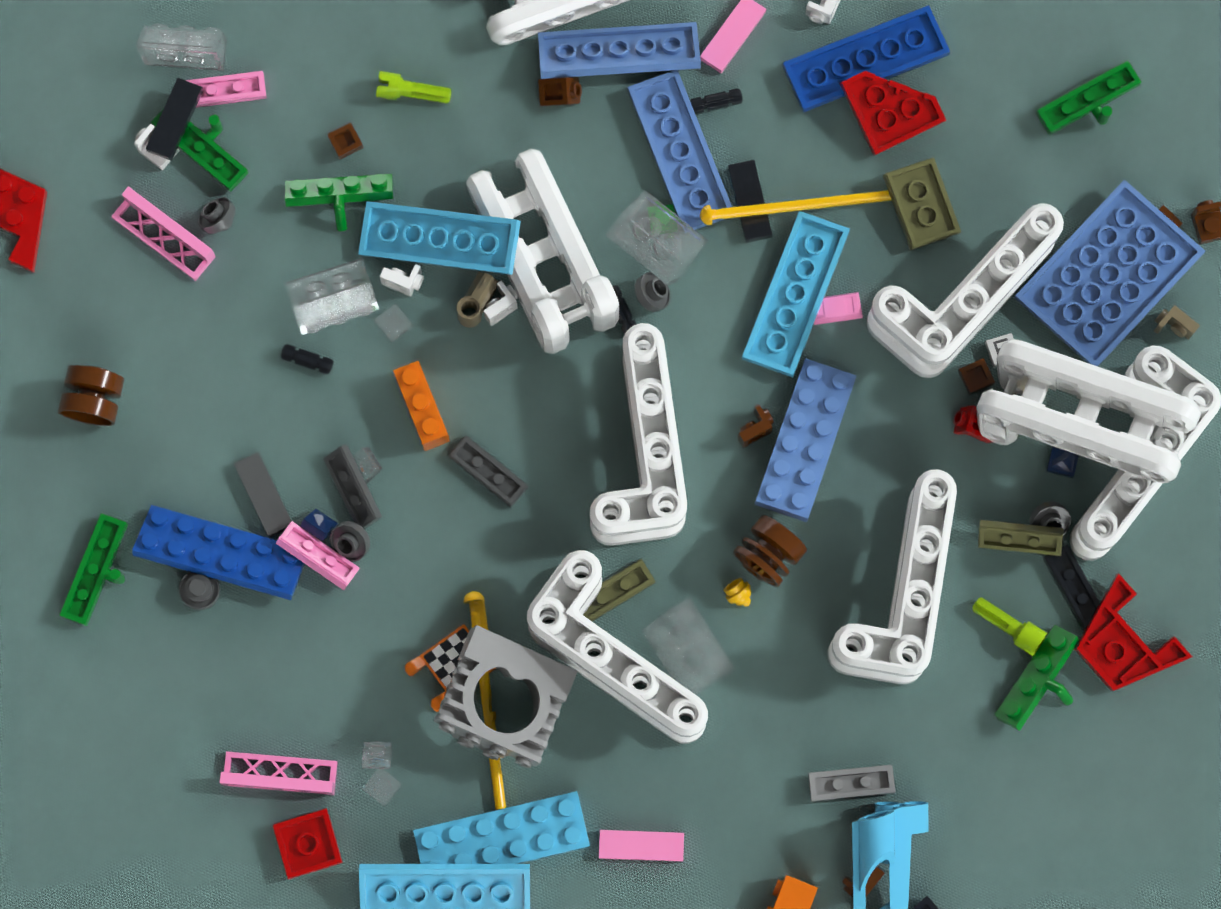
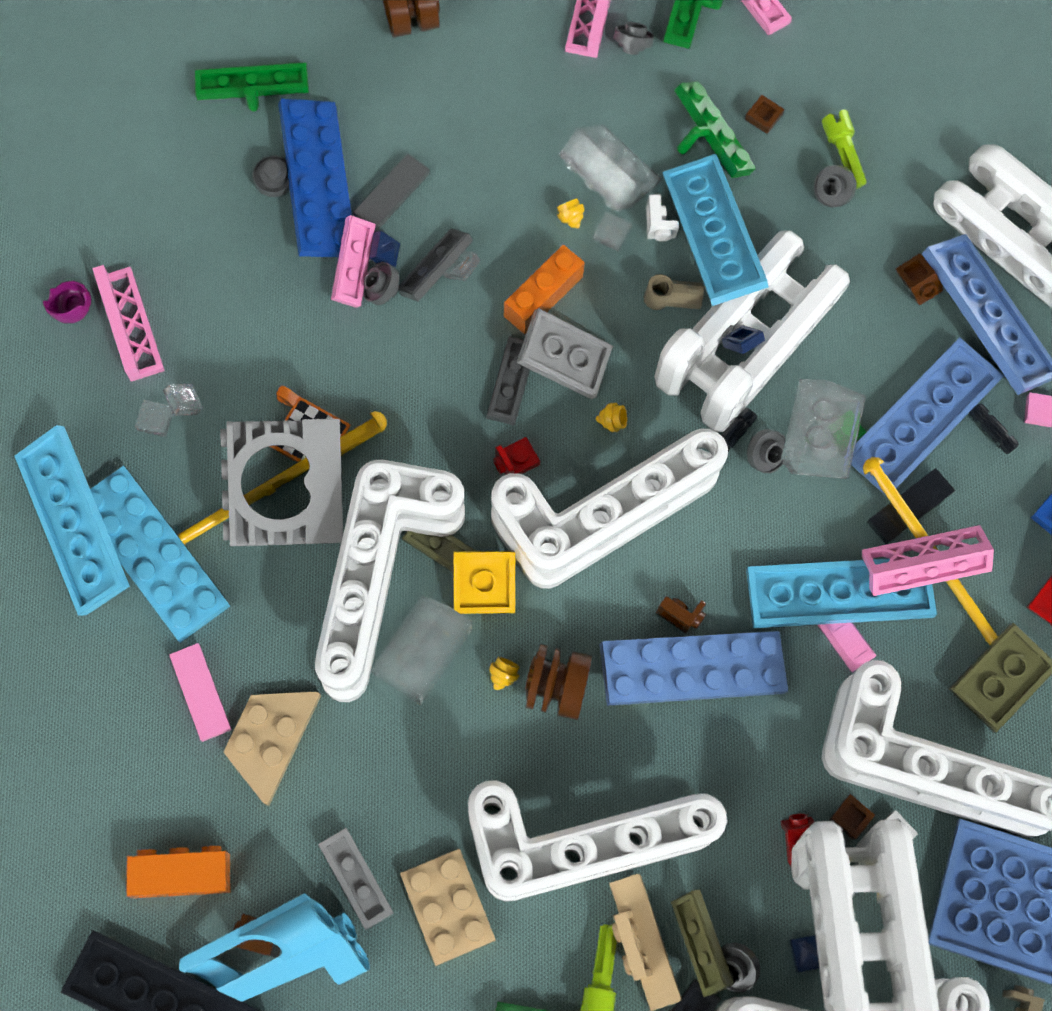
camera: 60 degrees right, 5 degrees down
(237, 817) = (68, 302): none -> magenta hair
(307, 359) = (539, 173): black axle -> none
(307, 844) = (70, 376): red plate -> none
(358, 349) = (571, 213): none -> yellow plate
(443, 117) = (835, 186): none -> dark grey plate
(490, 415) = (564, 354): none -> light grey tile
(500, 308) = (675, 316): white bracket -> none
(552, 264) = (743, 339): none -> dark blue tile
(560, 499) = (516, 457): none -> red bracket
(562, 403) = (613, 417): none -> yellow plate
(657, 573) = (484, 581): none -> yellow plate
(705, 805) = (268, 738): none -> tan wing
(811, 212) = (931, 564): none -> bright pink fence
(904, 721) = (447, 907): none -> tan plate
(999, 582) = (643, 943): none -> tan bracket

